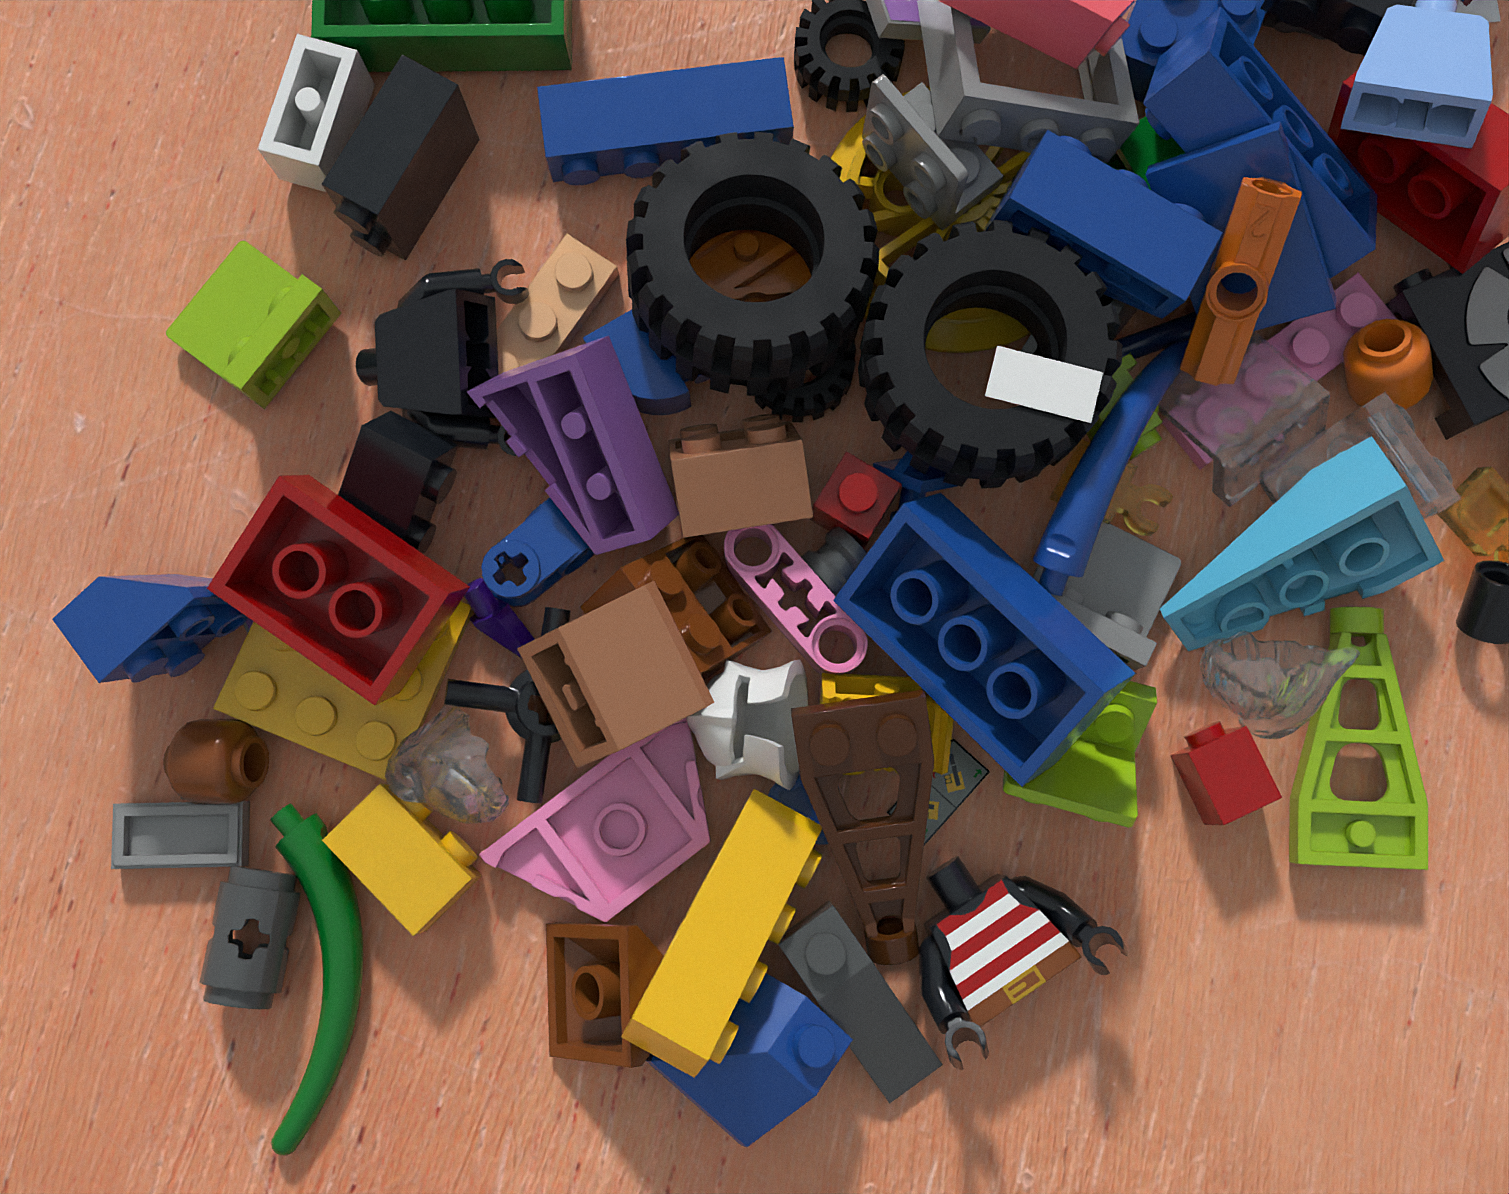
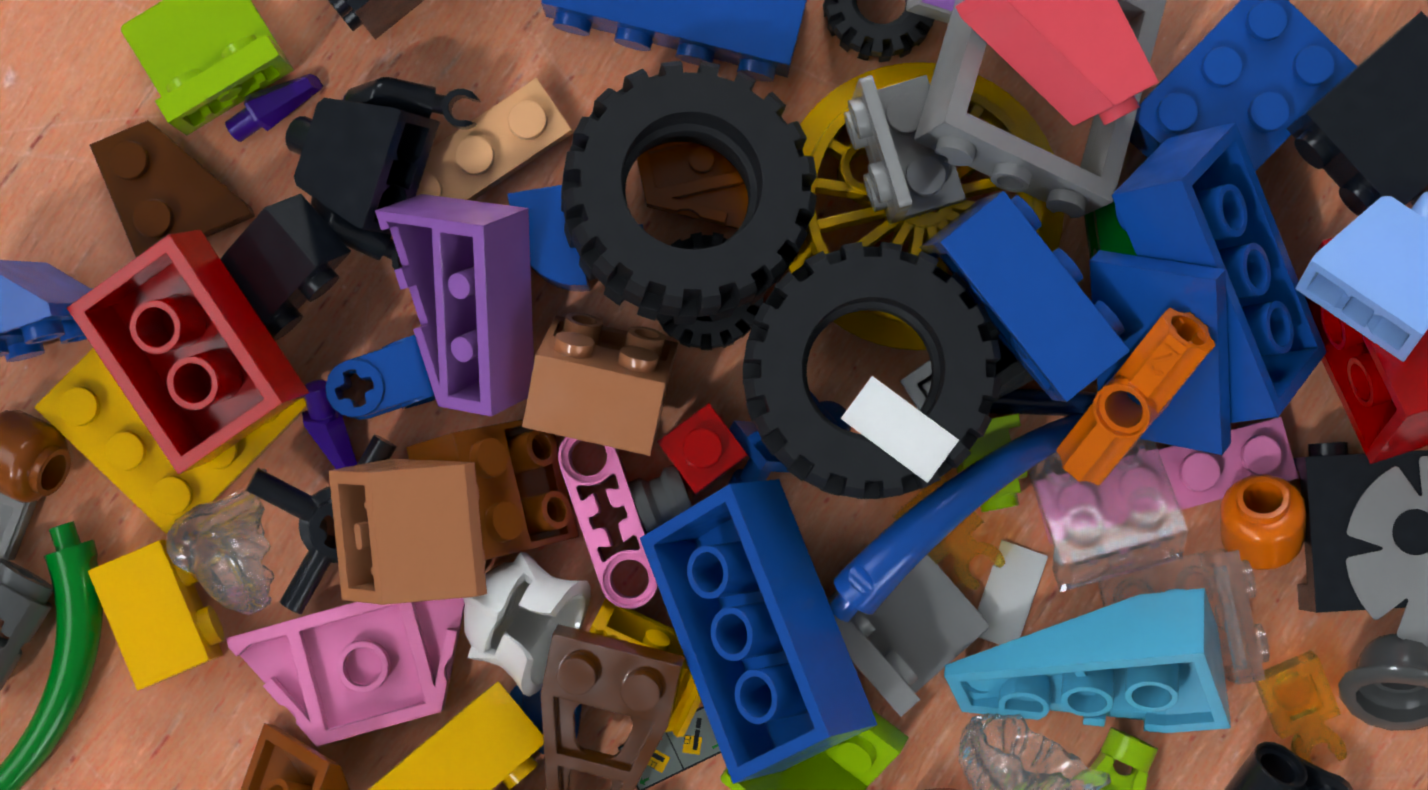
camera: 25 degrees right, 5 degrees up
(247, 455) = (163, 188): none -> reddish brown wing
(332, 352) = (271, 106): none -> dark purple bar
(1185, 526) = (1010, 592): none -> white sticker

